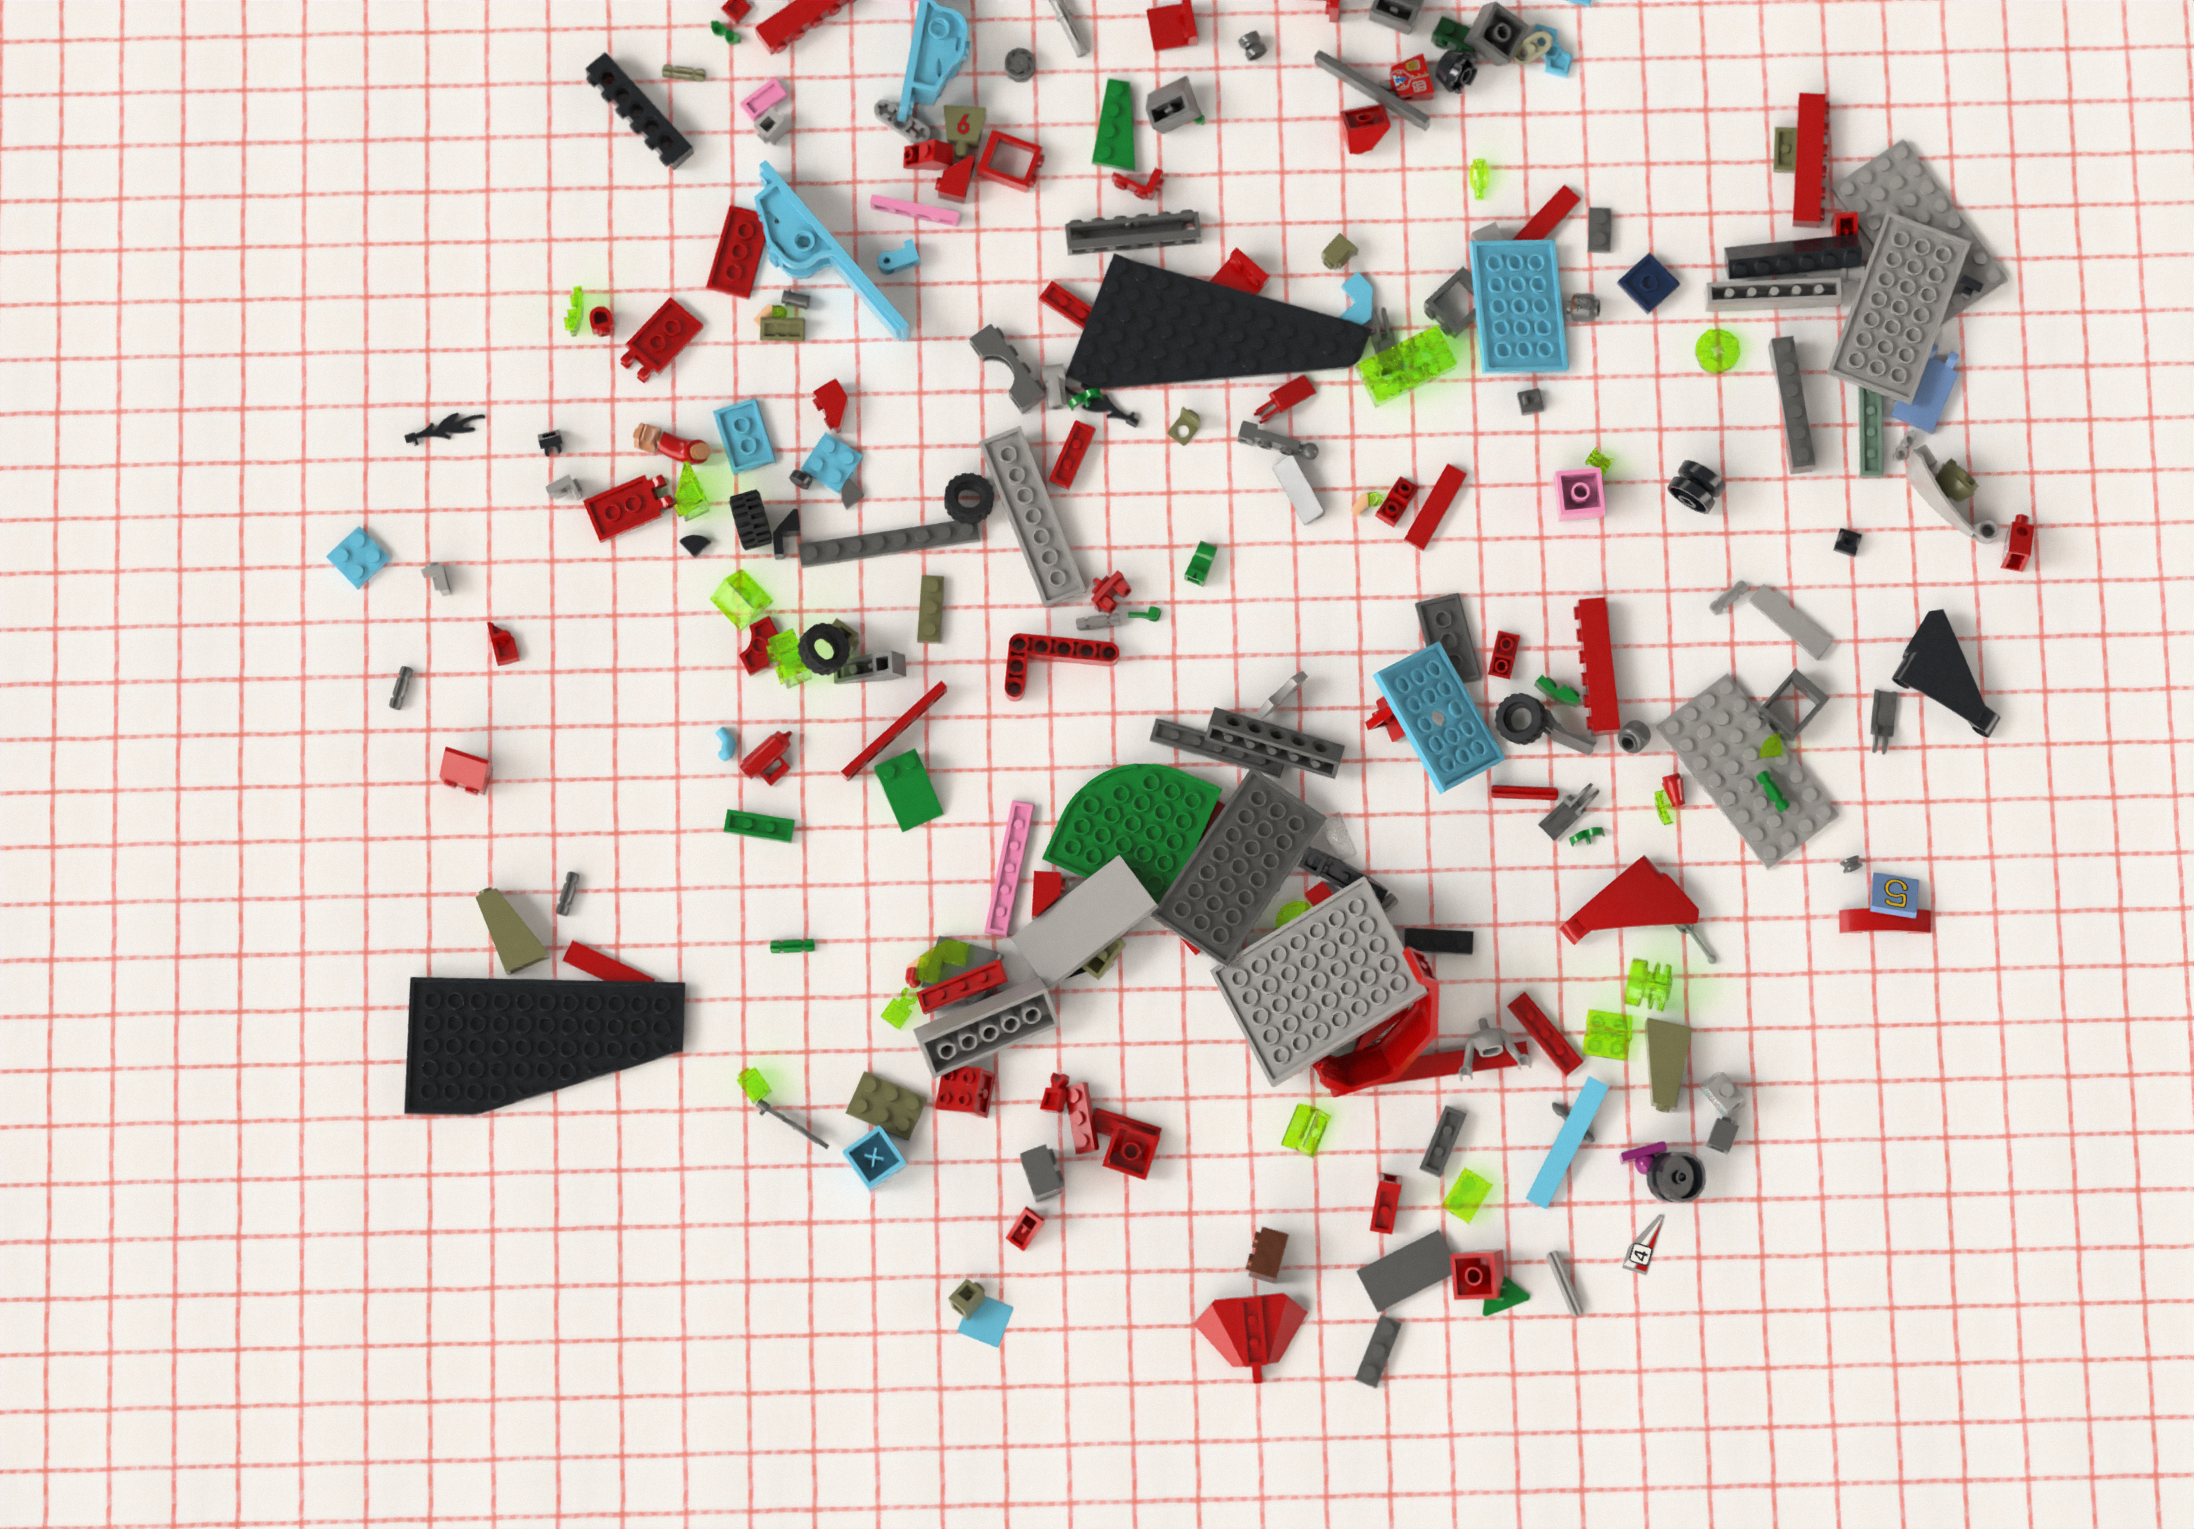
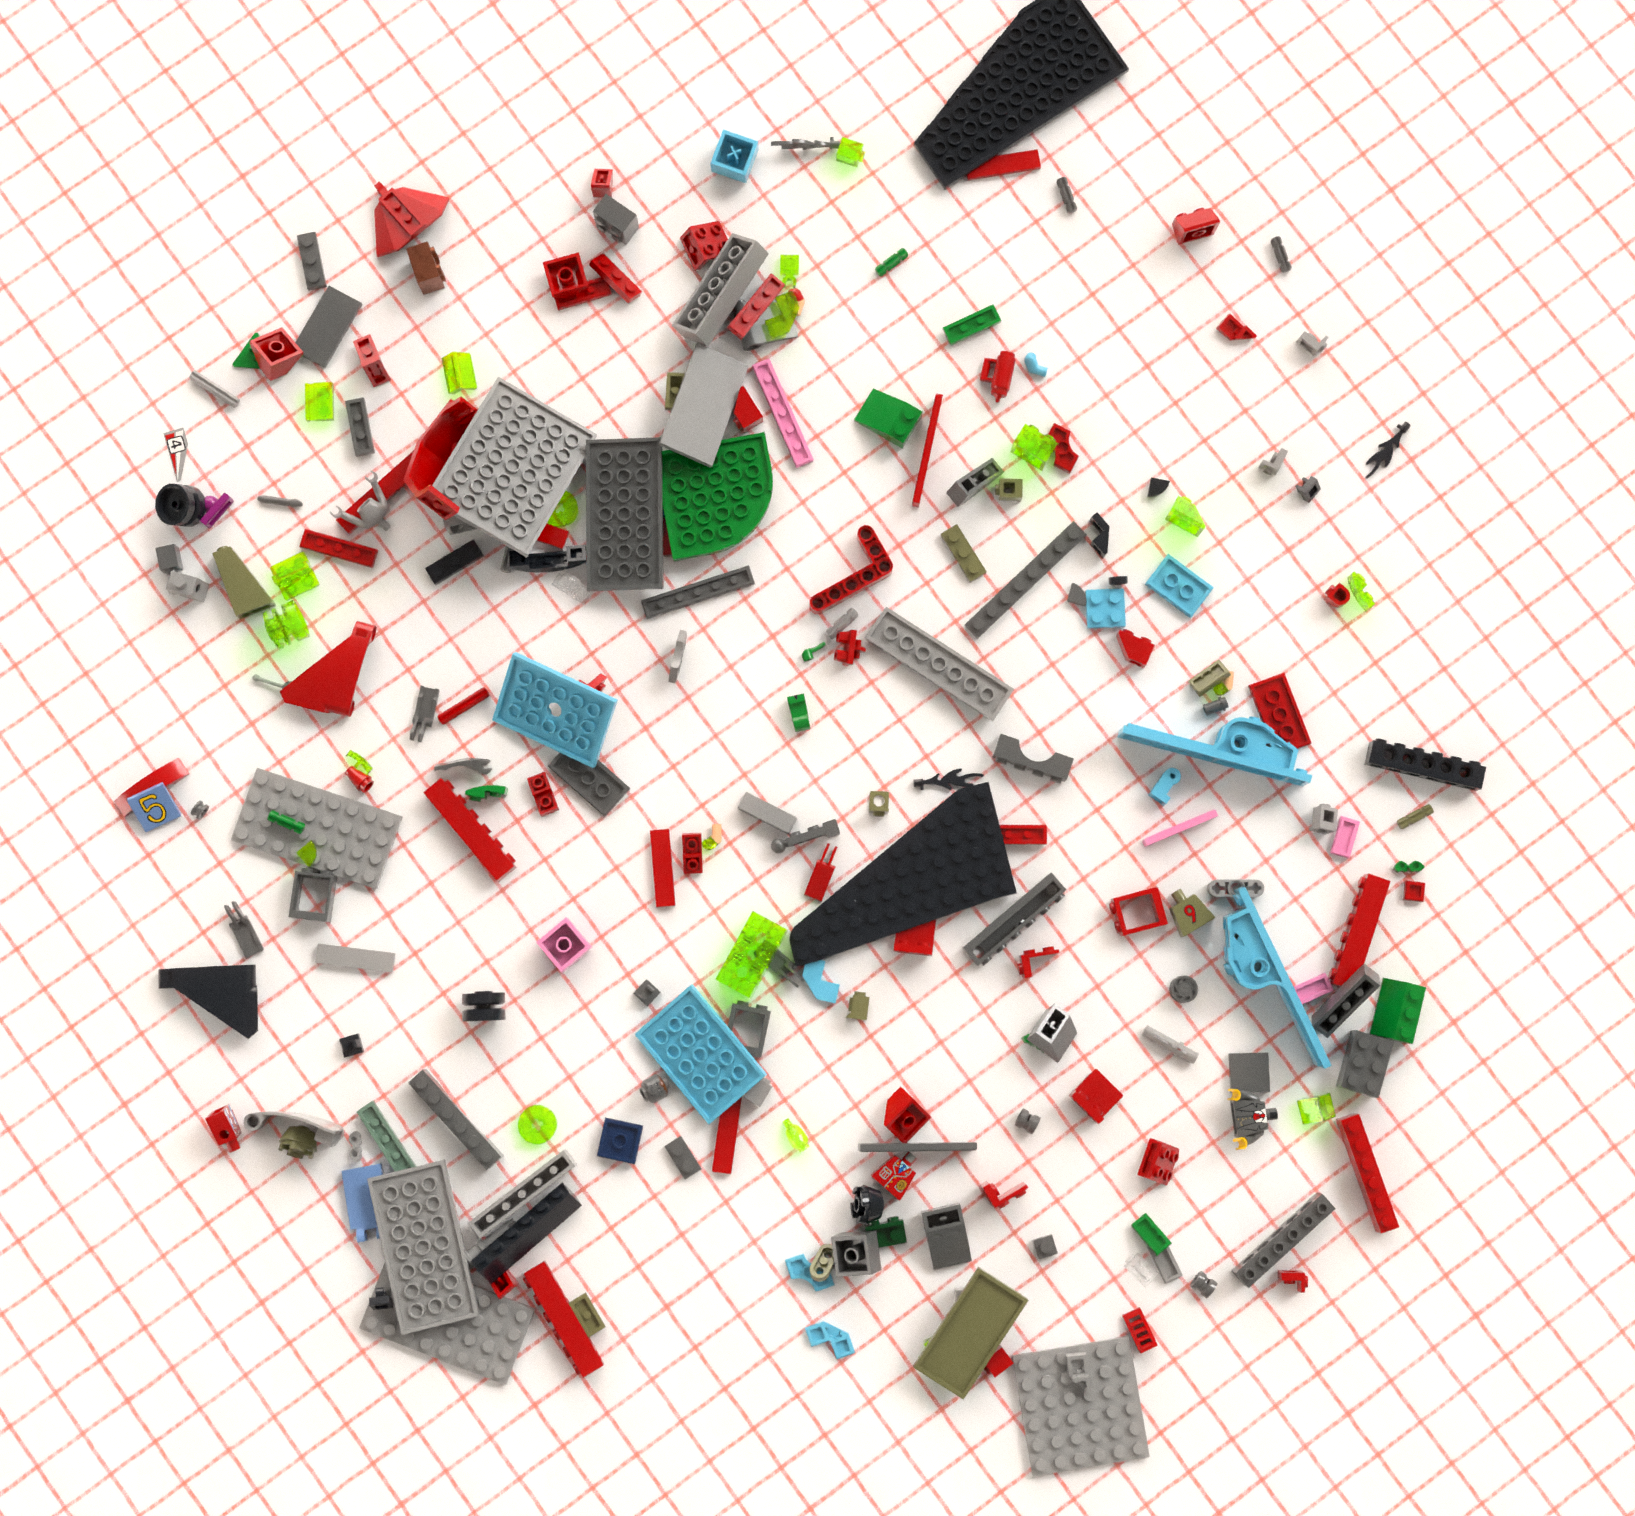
camera: 145 degrees right, 5 degrees up
(358, 557) = (1376, 322): medium azure plate -> none
(511, 936) = (1086, 141): olive slope -> none
(627, 506) = (1222, 480): red tile -> none
(661, 339) = (1287, 613): red tile -> none
(670, 445) = (1225, 542): piece -> none
(740, 599) = (1097, 471): clear neon green slope -> none
(750, 519) = (1130, 523): black tyre -> none
(836, 640) = (1014, 477): black tyre -> none
(886, 1105) = (752, 200): olive plate -> none
(928, 155) = (1199, 875): red slope -> none
(956, 181) = (1166, 870): red slope -> none
(965, 1291) = (613, 106): olive brick -> none
(969, 482) = (1006, 648): black tyre -> none
(987, 1322) = (589, 109): medium azure sticker -> none
(1054, 379) = (993, 773): light grey piece -> none
(1055, 1097) = (644, 280): red plate -> none
(1072, 455) = (943, 728): red plate -> none
(1084, 397) = (964, 774): green piece -> none
(1115, 131) = (1081, 989): green wing -> none
(1274, 743) = (666, 611): dark grey brick -> none
(1537, 724) = (491, 765): black tyre -> none
(1567, 1142) = (273, 482): medium azure tile -> none
(1595, 831) = (400, 705): green piece -> none
(1597, 460) = (567, 981): clear neon green bush -> none
(1634, 736) = (410, 795): dark grey head -> none
(1728, 597) = (410, 945): light grey axle -> none

